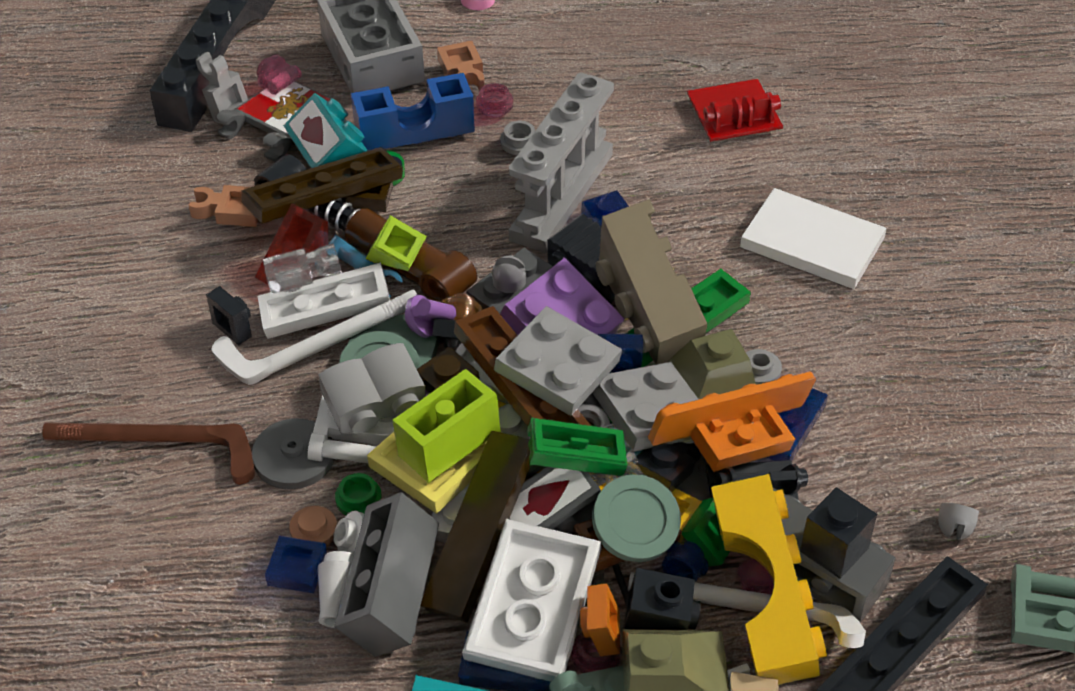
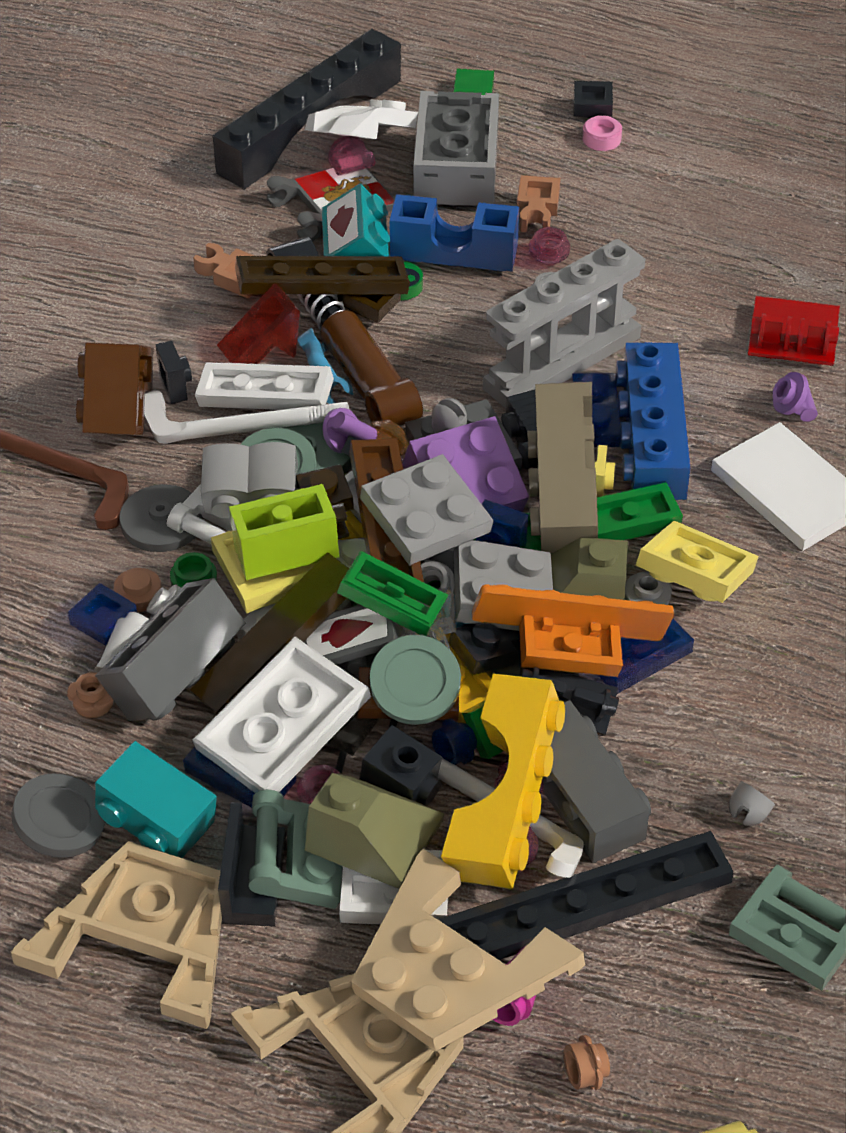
camera: 25 degrees right, 0 degrees up
(191, 348) = (114, 387): none -> reddish brown brick
(225, 86) = (289, 155): light grey plate -> none
(278, 39) = (361, 120): none -> white plate
(296, 268) = (247, 346): clear plate -> none
(331, 655) = (89, 703): none -> nougat plate
(396, 245) = (353, 354): lime slope -> none
(601, 620) = (331, 754): orange plate -> none
(680, 214) = (654, 417): none -> blue brick
(770, 162) = (793, 395): none -> medium lavender plate
(790, 327) = (696, 562): none -> light yellow plate
(838, 532) = (595, 761): black brick -> none

